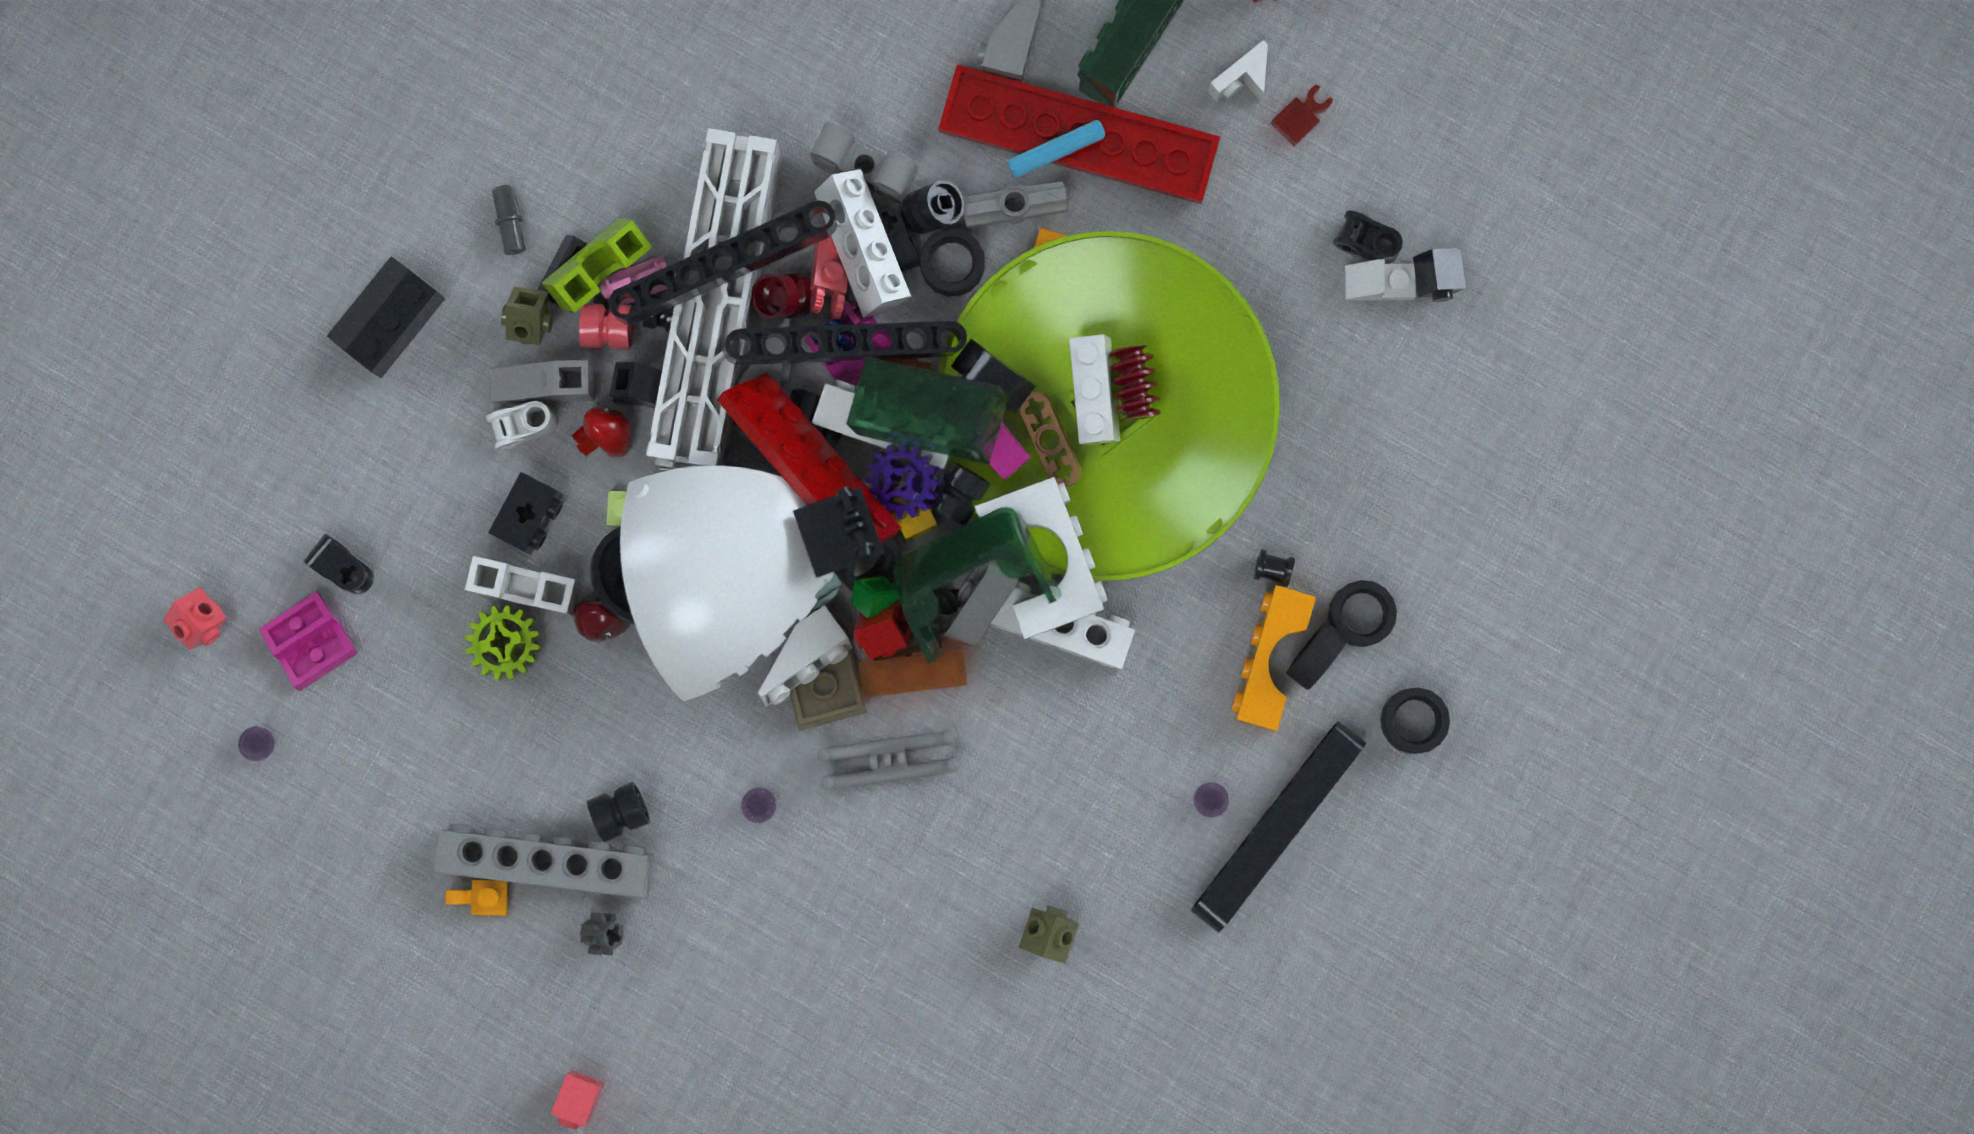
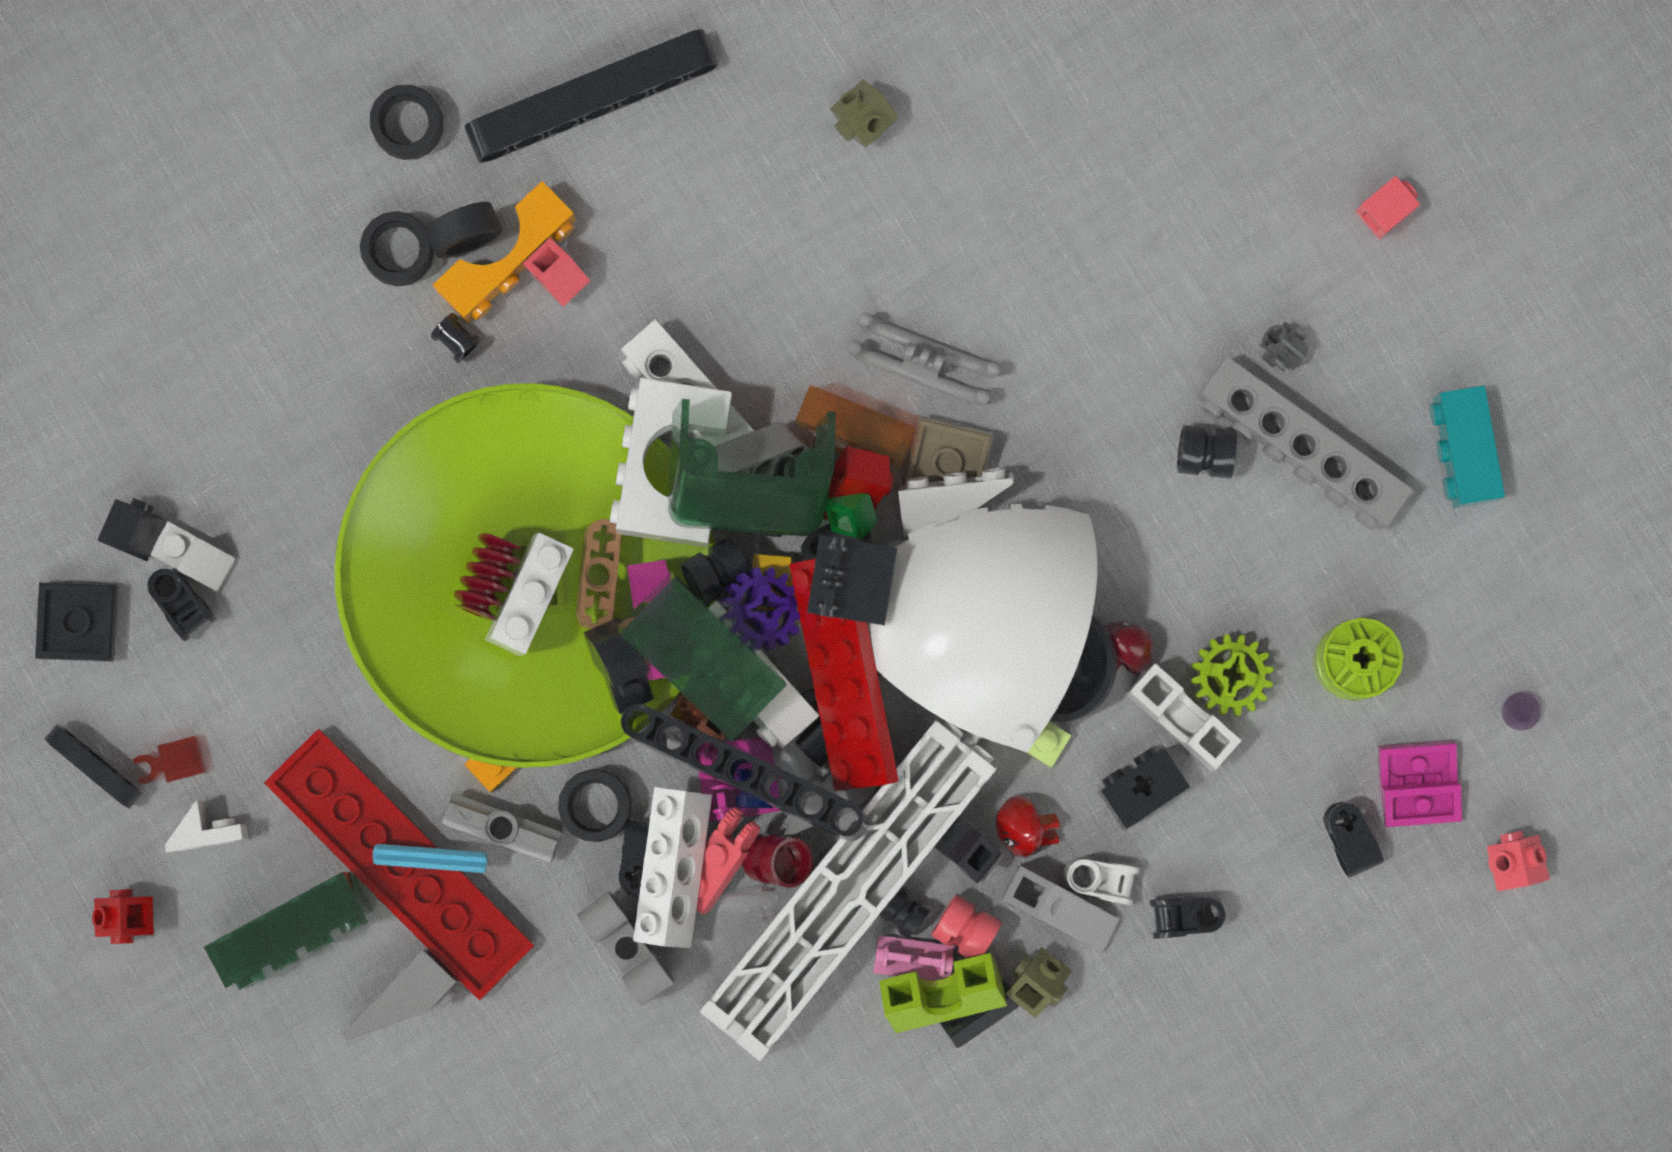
camera: 160 degrees left, 0 degrees up
(385, 317) = (1179, 1063): black slope -> none
(409, 934) = (1467, 447): none -> teal brick
(425, 715) = (1346, 678): none -> lime wheel
(440, 430) = (1183, 917): none -> black piece
(486, 897) = (1378, 444): light orange plate -> none
(508, 220) = (1005, 1093): dark grey axle -> none
(705, 263) = (838, 909): black beam -> none
(758, 805) = (1070, 386): clear purple plate -> none
(932, 207) = (583, 866): black wheel -> none
(1211, 800) = (640, 156): clear purple plate -> none
(1223, 664) = (556, 272): none -> coral brick
(1360, 77) = (93, 766): none -> black beam
(1439, 180) = (76, 622): none -> black plate

